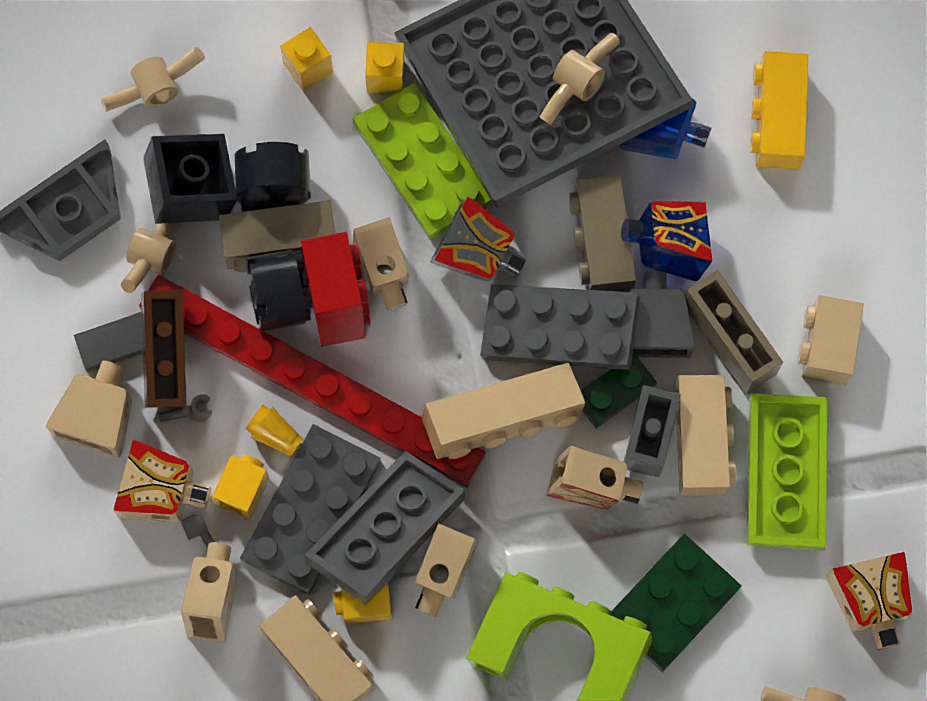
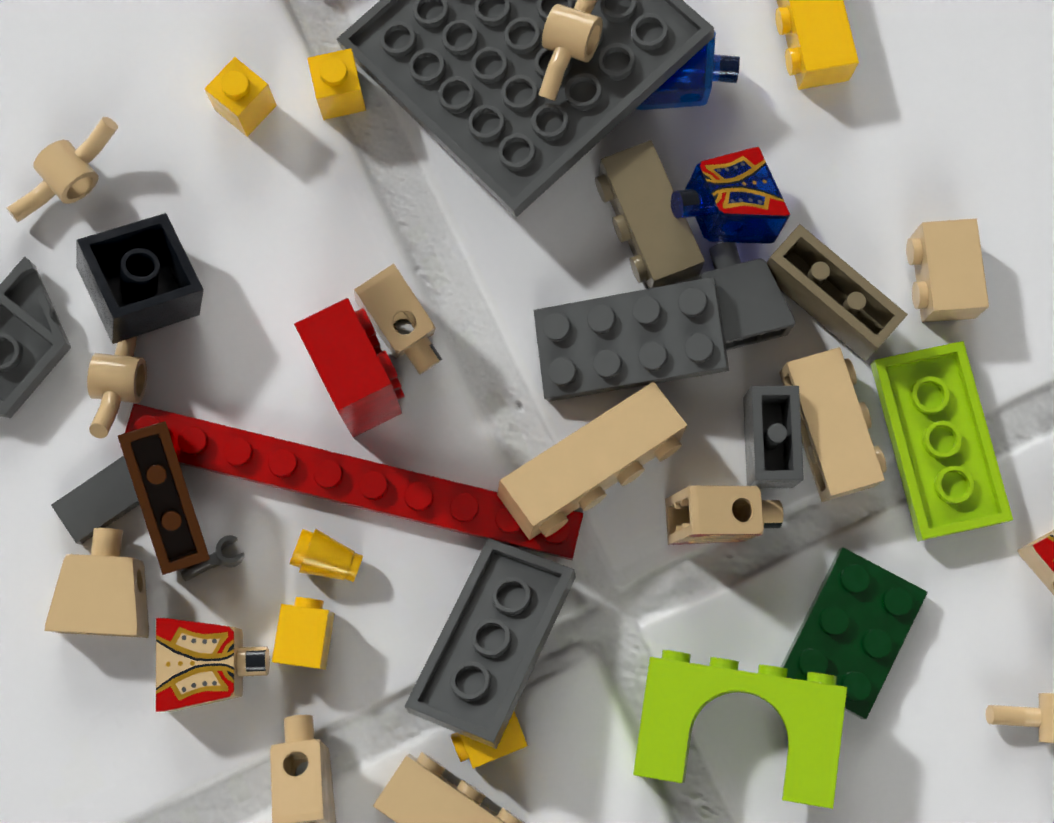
camera: 15 degrees left, 5 degrees up
(196, 526) = (264, 697): dark grey hand -> none
(272, 176) = (238, 251): black brick -> none
(272, 230) = (259, 318): dark tan brick -> none
(278, 290) = (282, 385): black brick -> none
(311, 498) = (390, 635): dark grey plate -> none
(420, 158) = (411, 184): lime plate -> none
(446, 549) = (579, 650): tan torso -> none
(477, 244) = (505, 267): torso -> none
(615, 391) = (714, 399): dark green plate -> none

